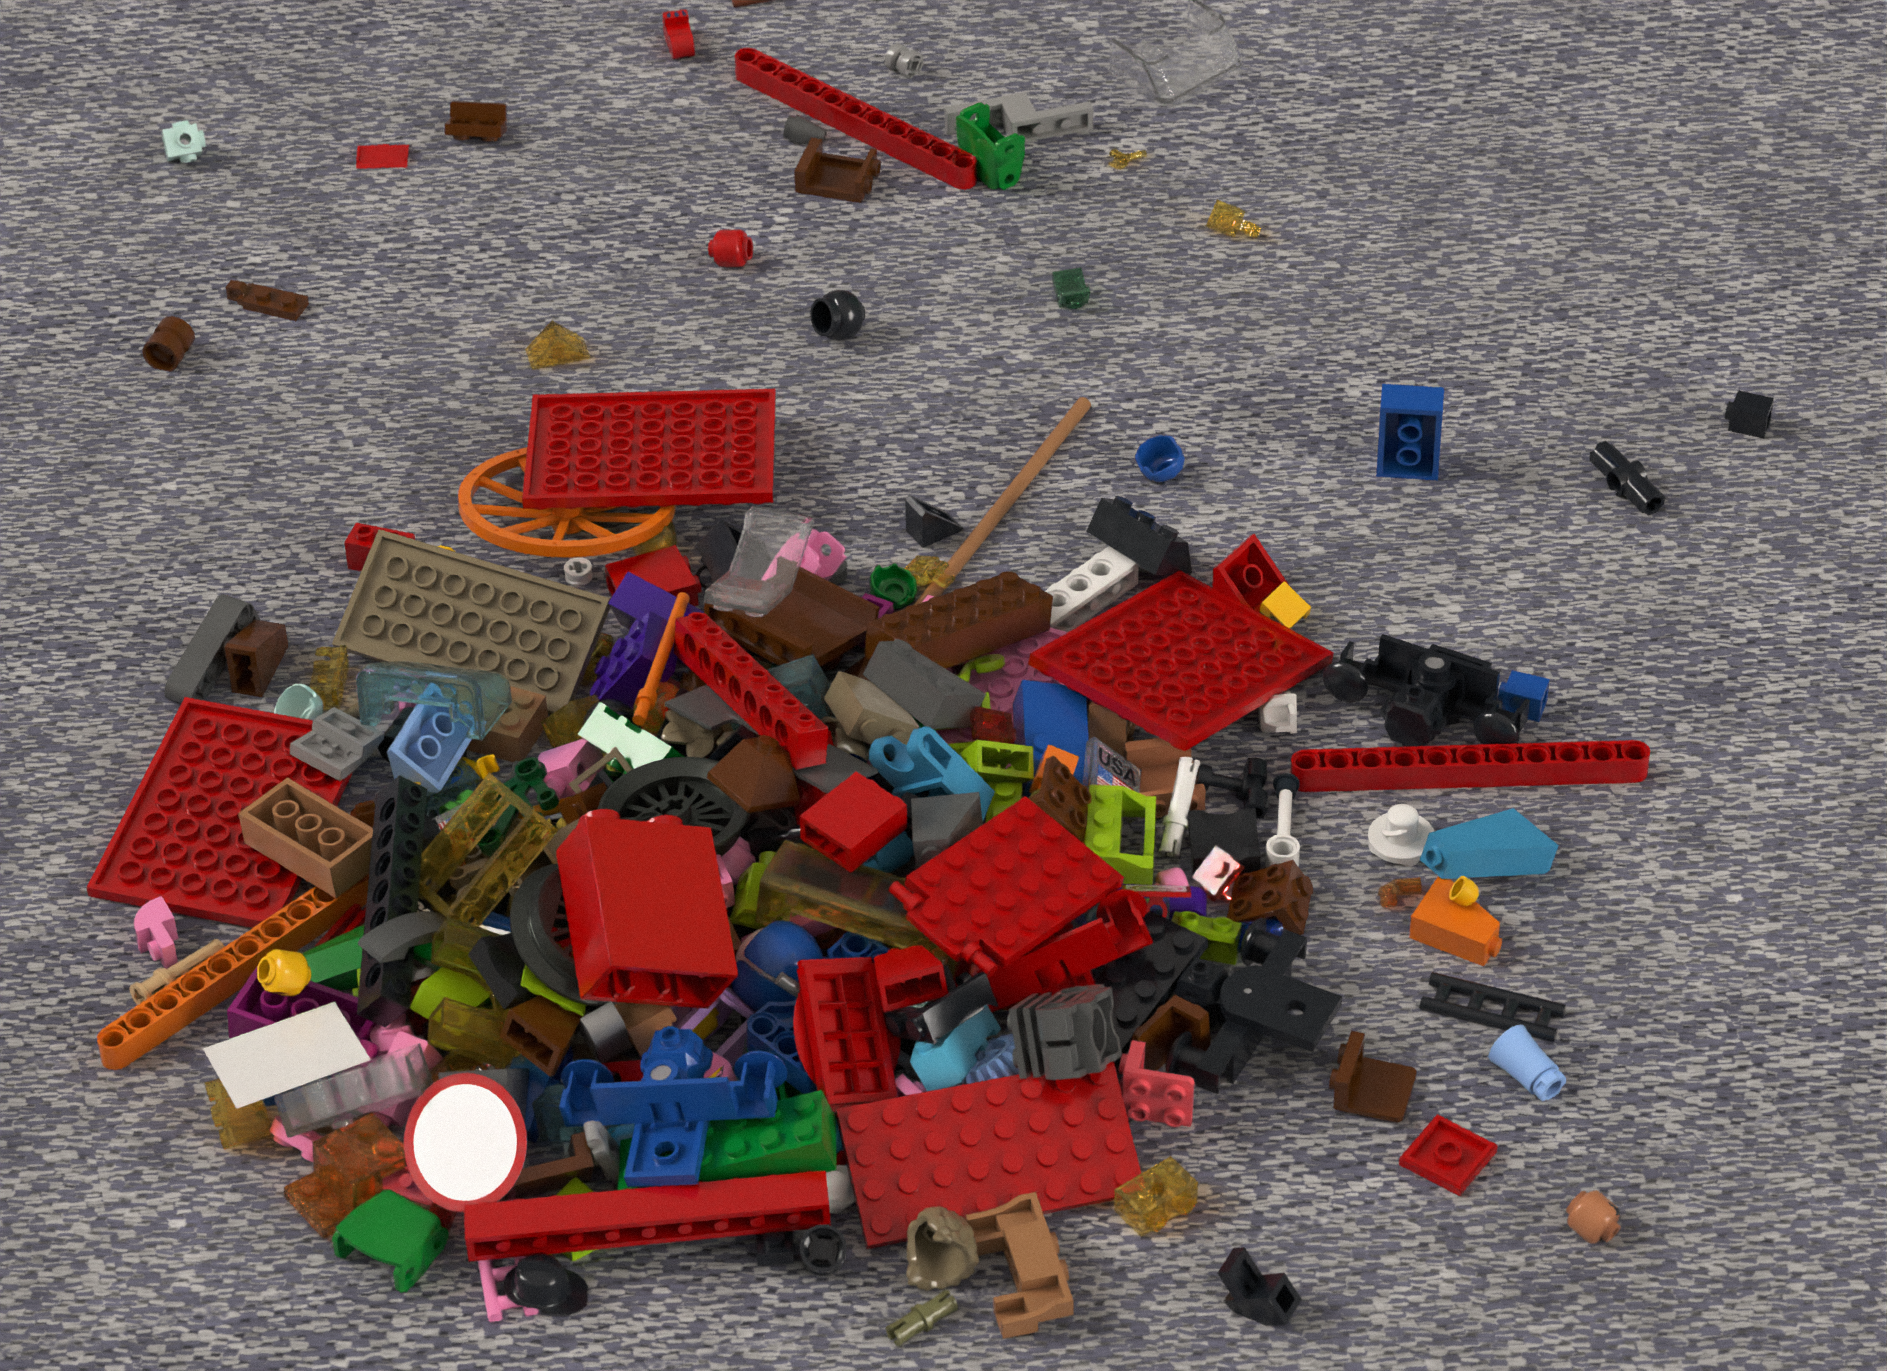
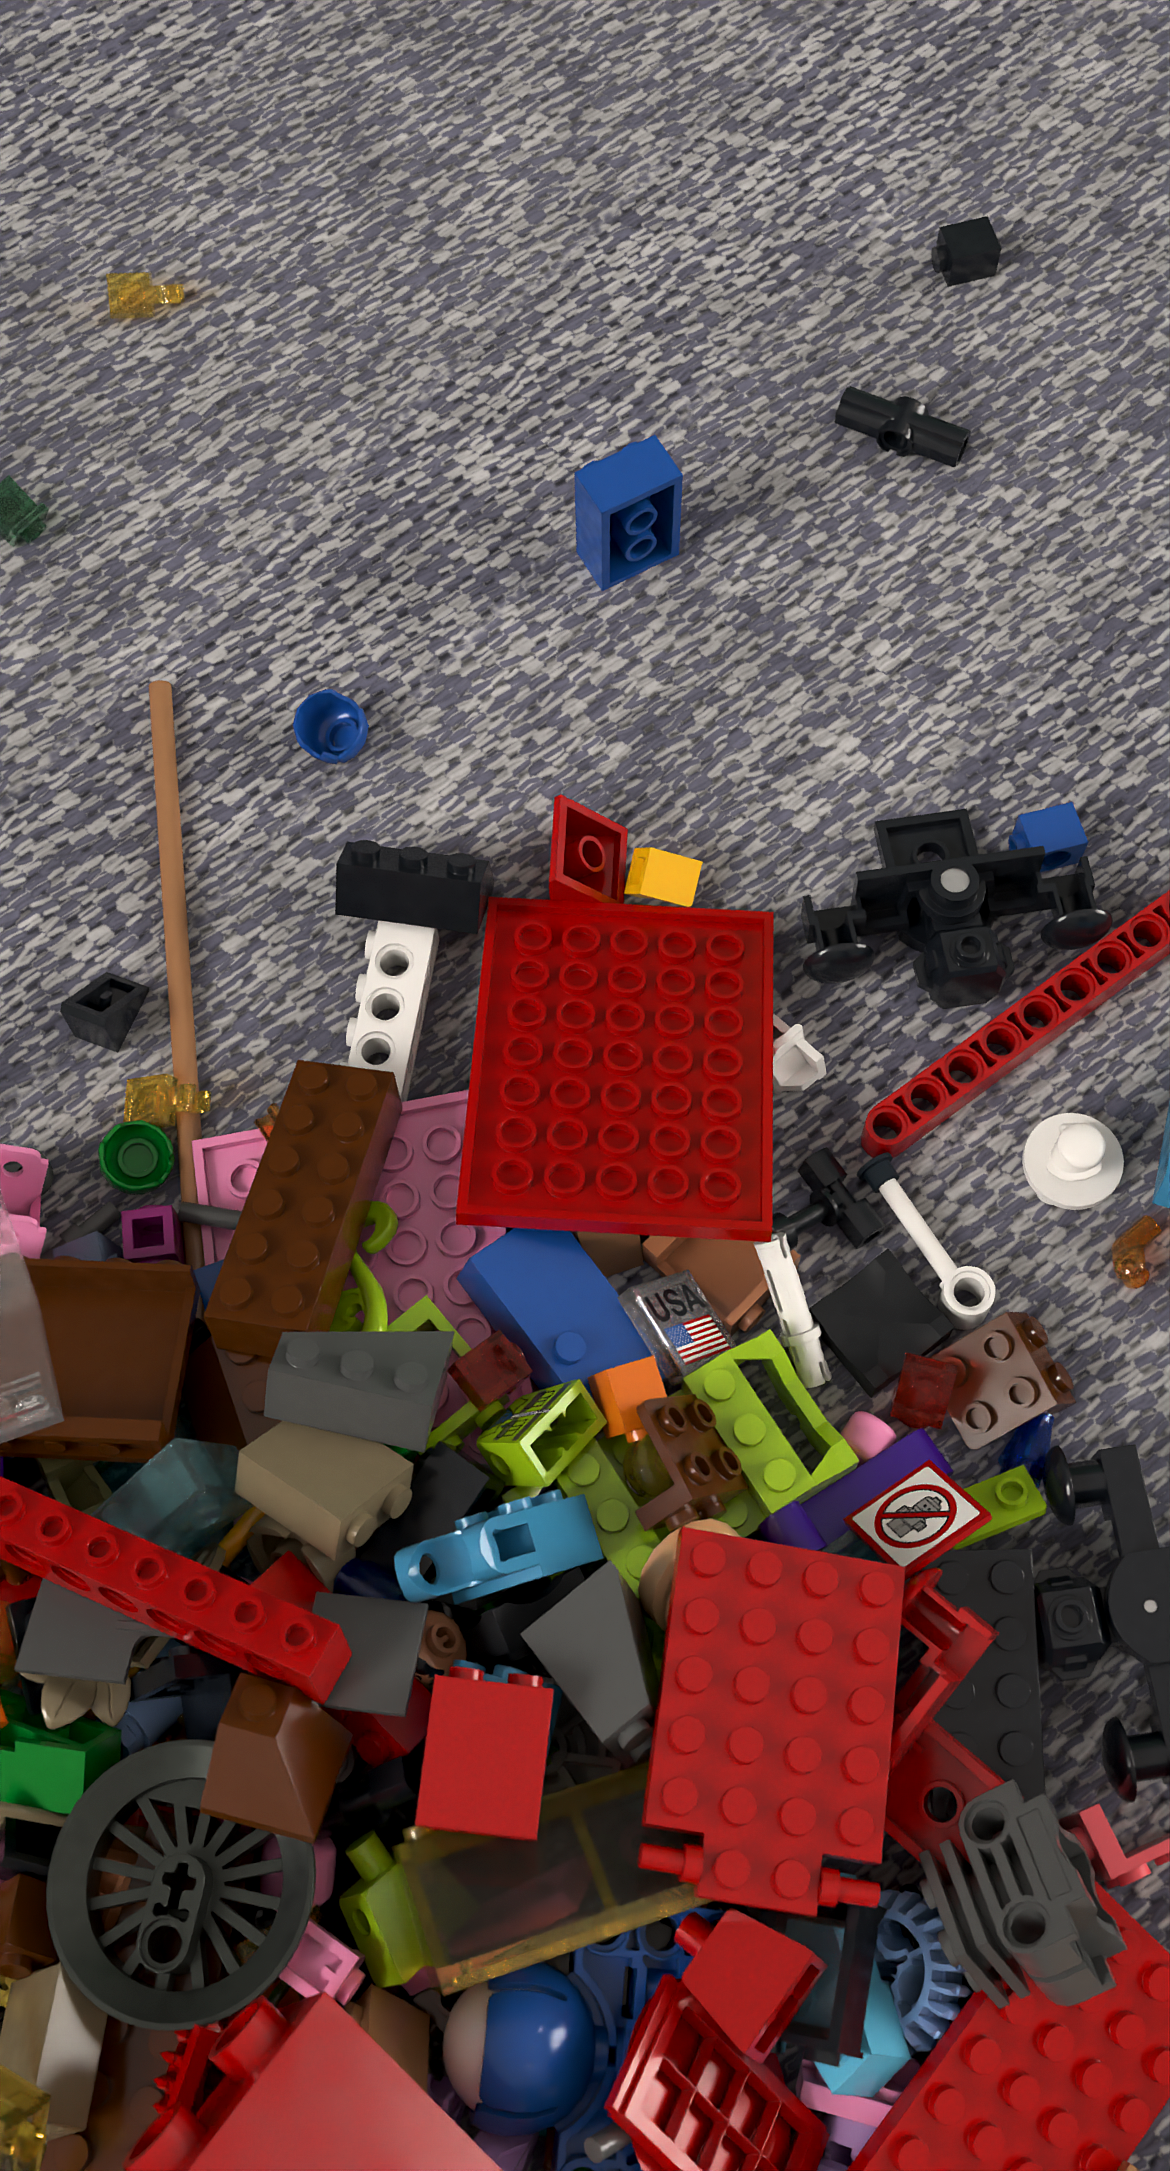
camera: 35 degrees left, 25 degrees up
(1168, 1023) = (1094, 1701): reddish brown bracket -> none

